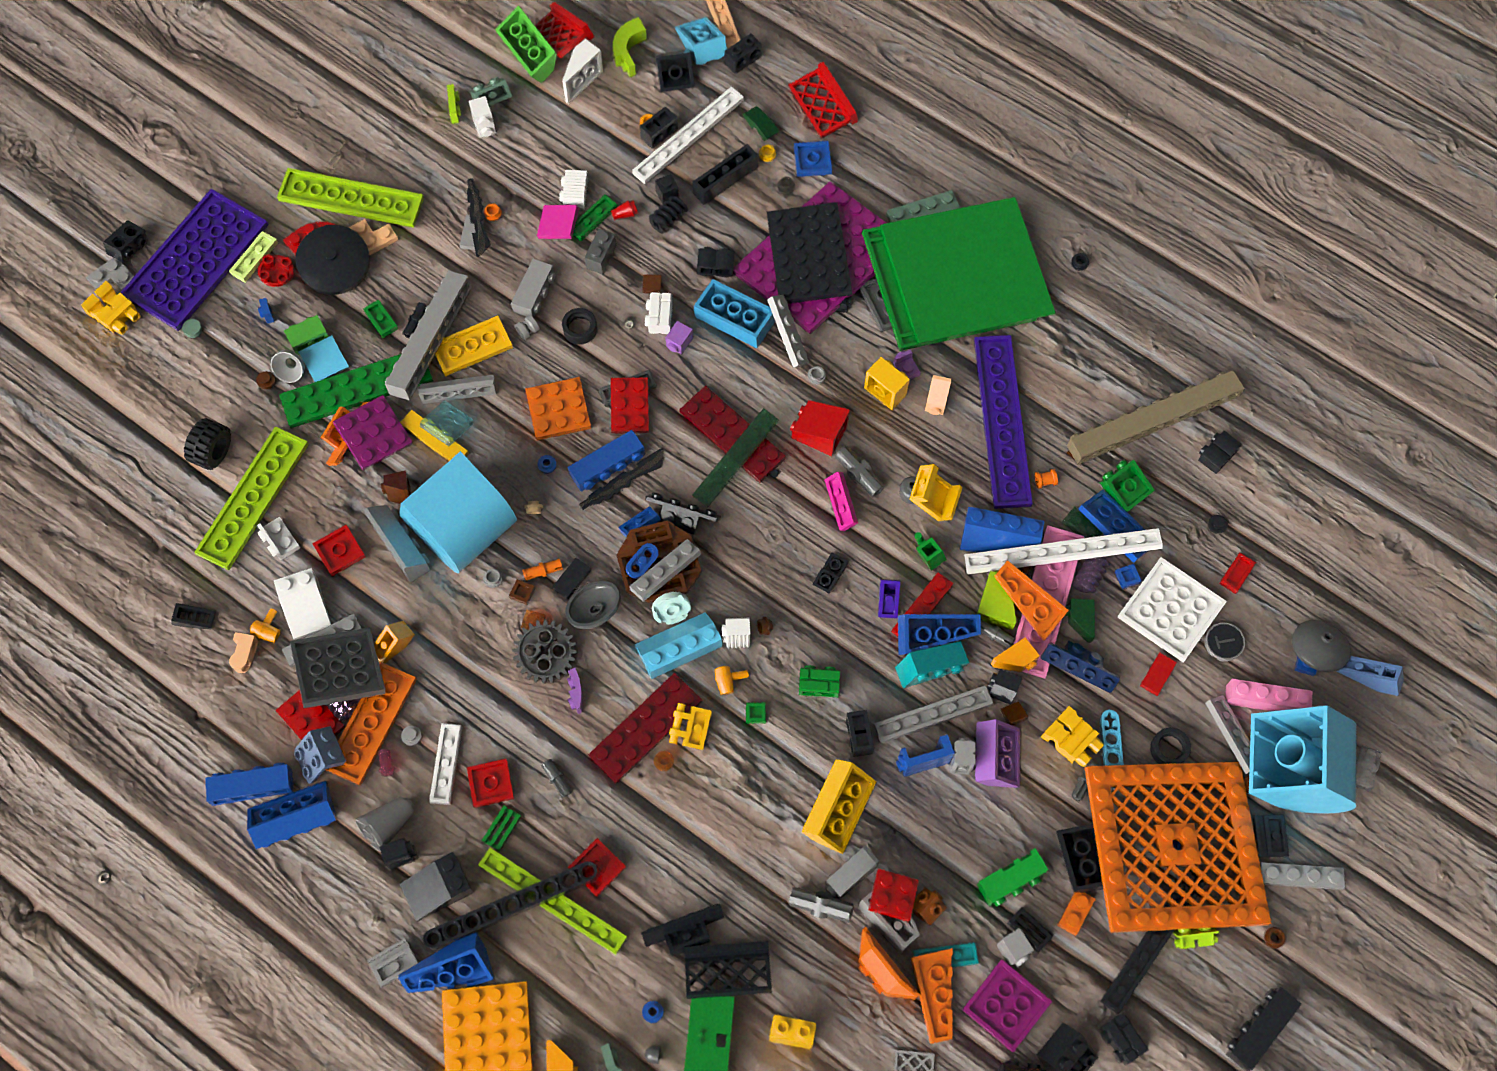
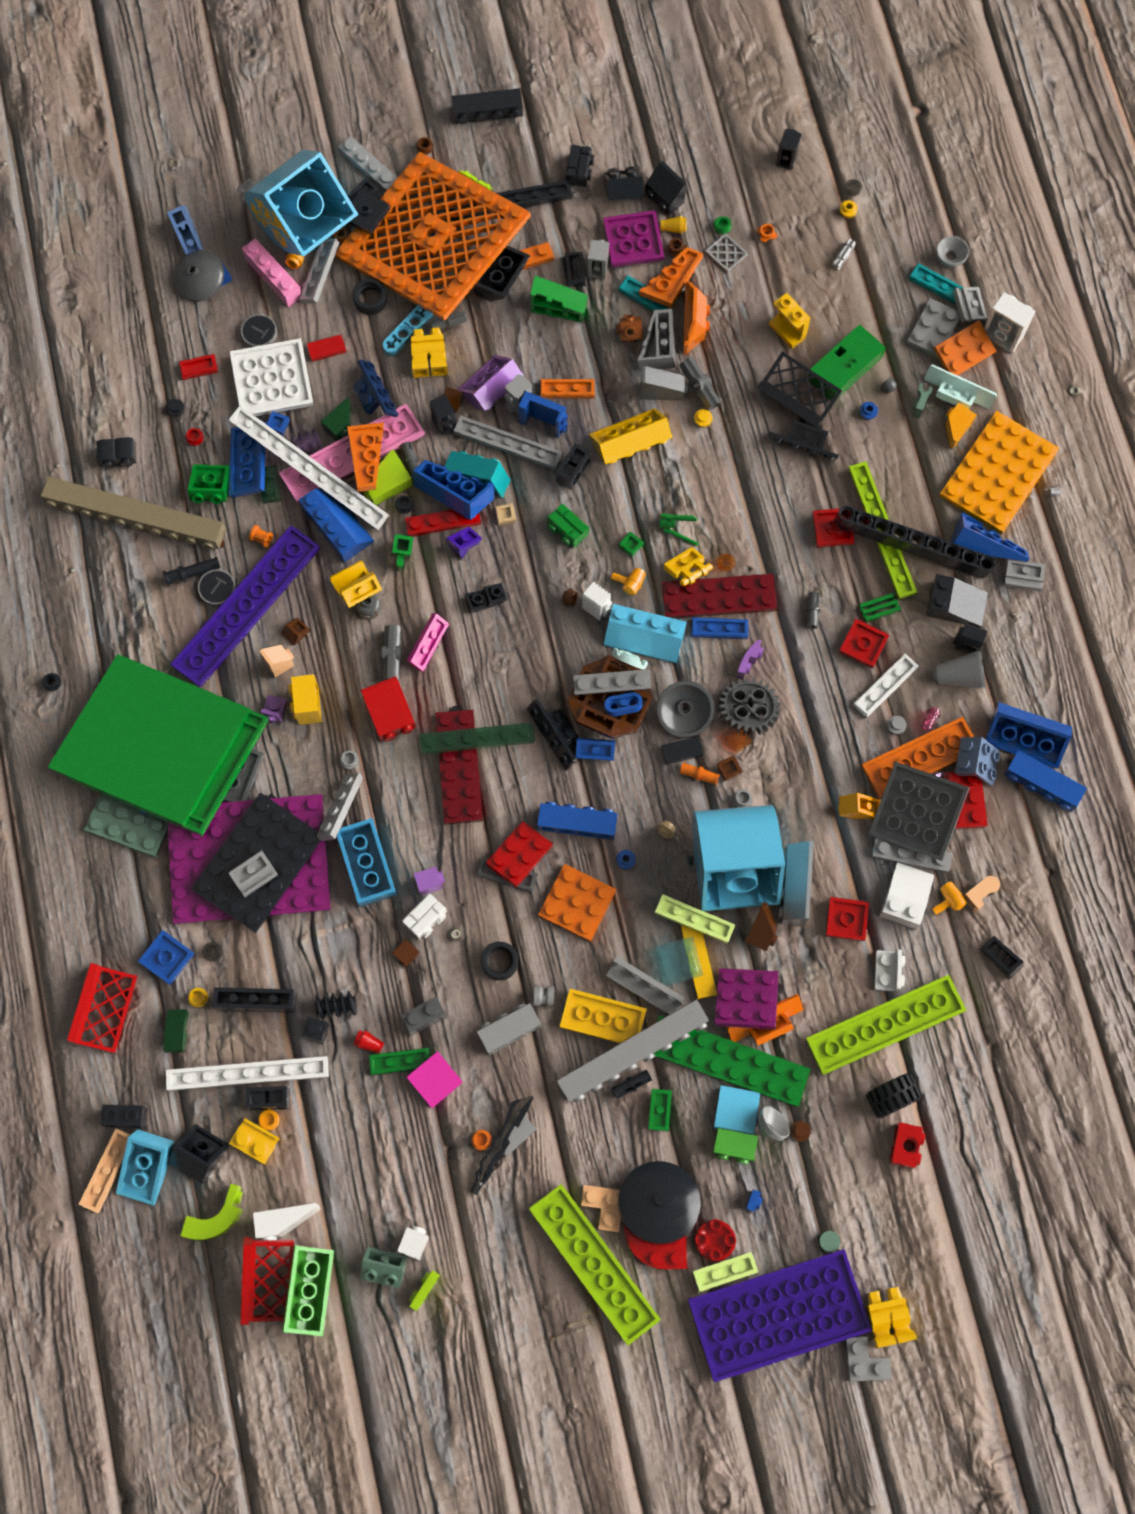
camera: 140 degrees left, 5 degrees up
(125, 241) = (833, 1389): black brick -> none
(171, 417) = (899, 1155): none -> red brick
(474, 452) = (694, 919): none -> yellowish green plate
(574, 188) = (392, 1100): white brick -> none
(622, 701) = (719, 628): none -> blue tile
(624, 479) = (576, 798): black sword -> none
(645, 103) = (254, 1141): none -> yellow plate
(715, 262) = (337, 925): black brick -> none
(739, 755) = (668, 521): none -> green plant
(792, 877) = (703, 417): none -> yellow plate
(801, 235) = (253, 873): none -> light grey plate
(879, 654) = (505, 514): none -> tan tile
(893, 895) = (649, 344): red plate -> none
(931, 807) = (567, 388): none -> orange tile
(948, 434) = (295, 631): none -> reddish brown slope
(965, 594) = (404, 504): none -> black plate
(967, 1027) = (675, 242): none -> reddish brown plate
(983, 1054) = (675, 224): none -> yellow cone
(1017, 657) = (415, 426): light orange slope -> none
(1038, 417) = (216, 587): none -> black tile
(1072, 405) = (182, 574): none -> black pin
(1177, 514) = (194, 437): none -> red plate
(1251, 818) = (370, 212): none -> black plate

